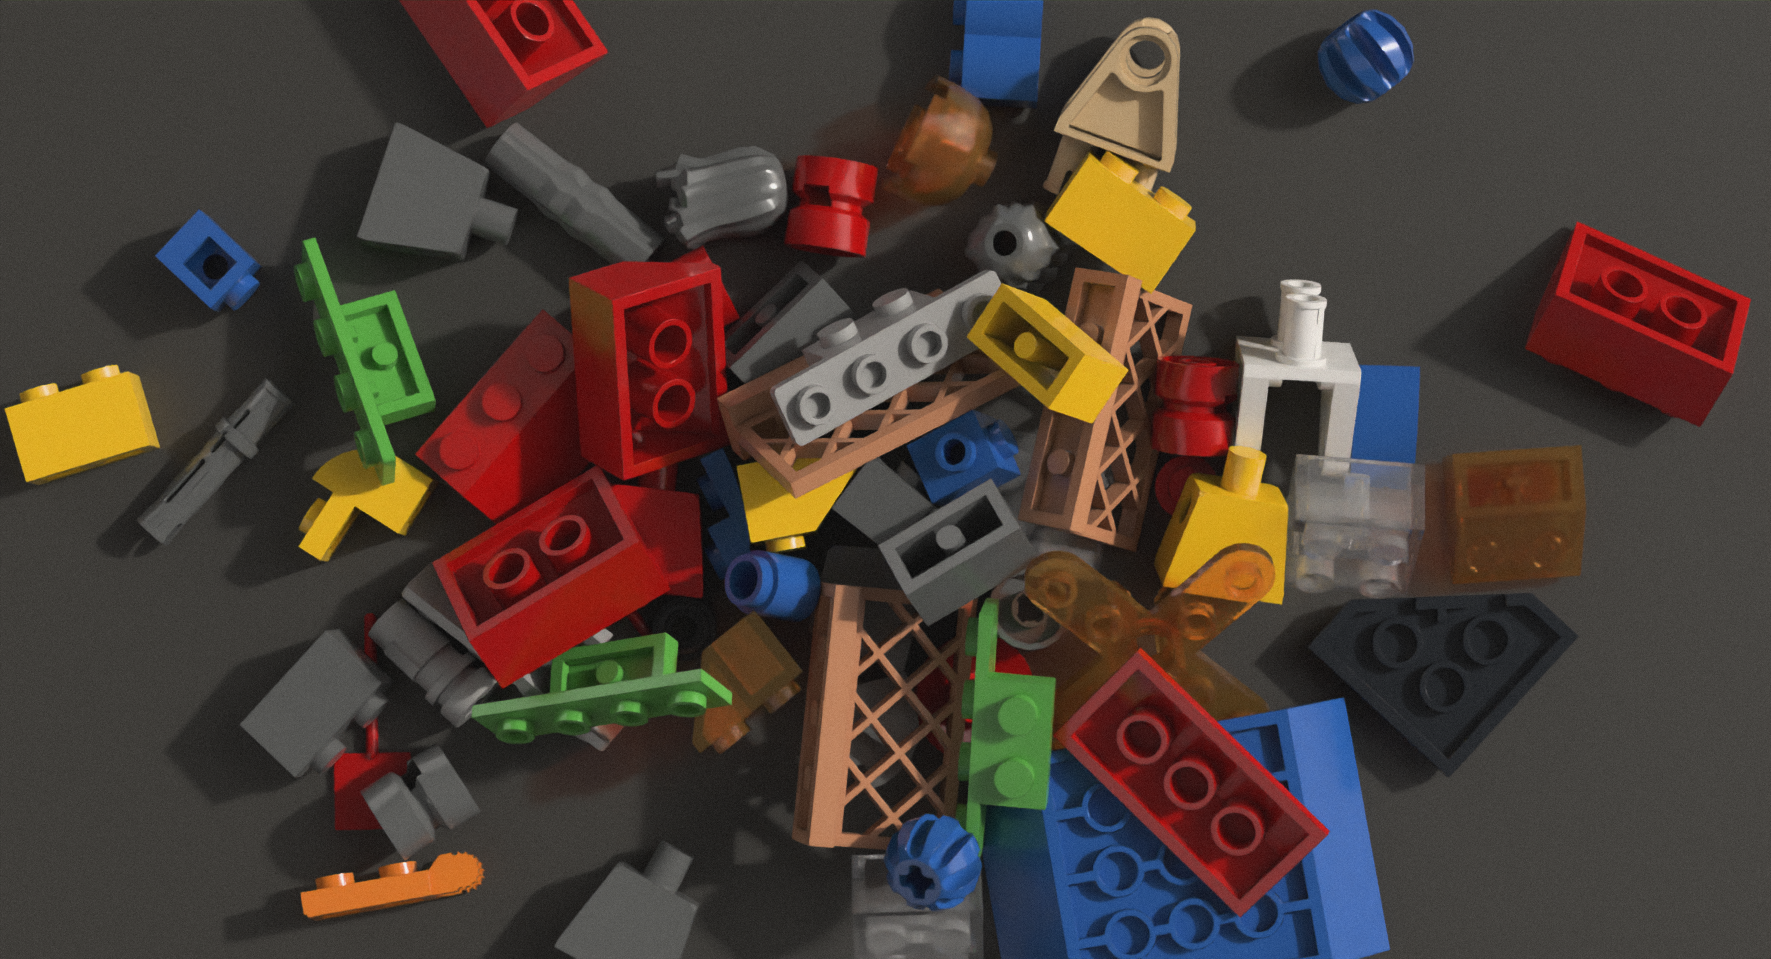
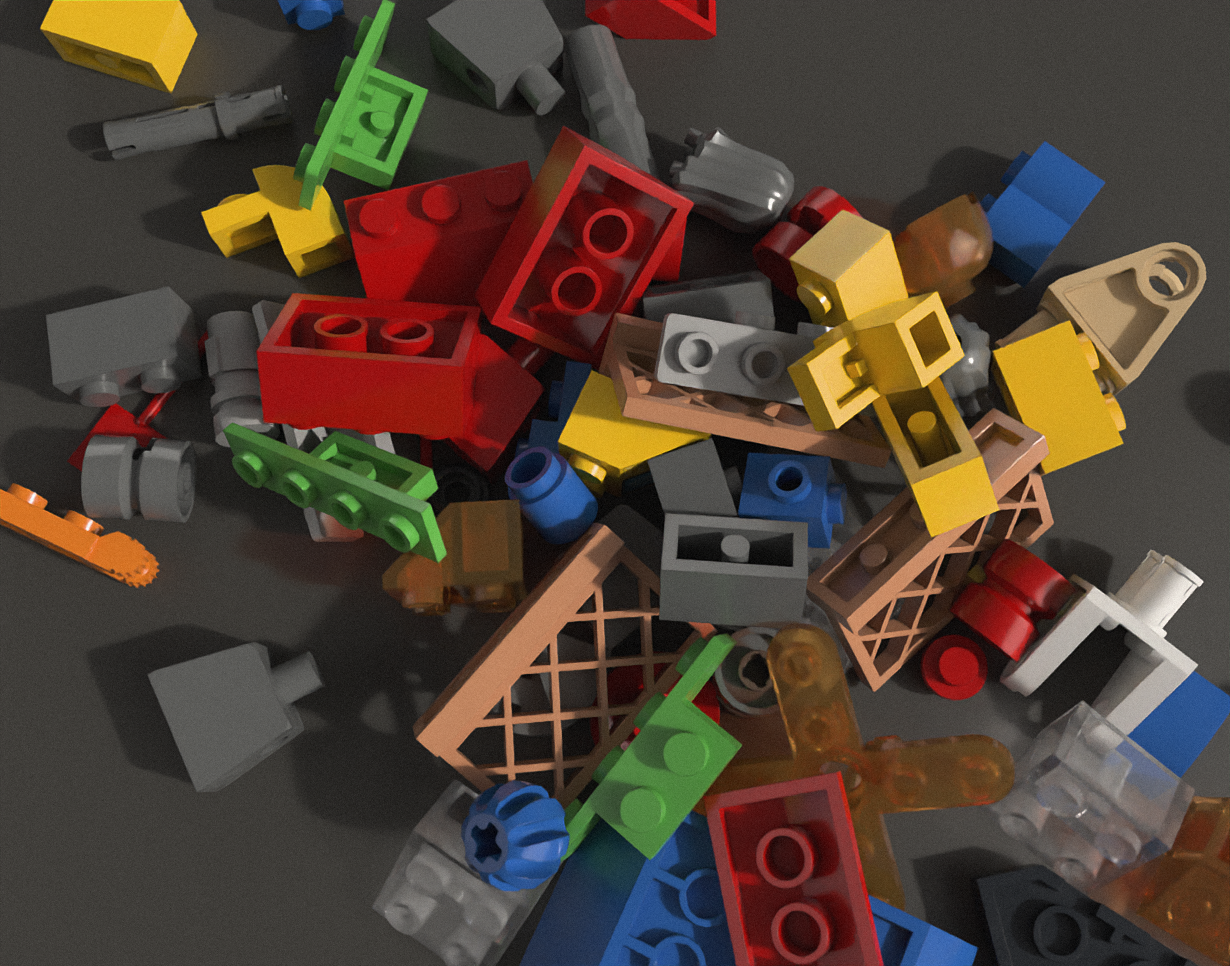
camera: 35 degrees right, 10 degrees down
(894, 234) = (847, 270): none -> yellow brick
(950, 315) = (873, 356): none -> yellow brick
(1222, 513) = (976, 702): yellow torso -> none

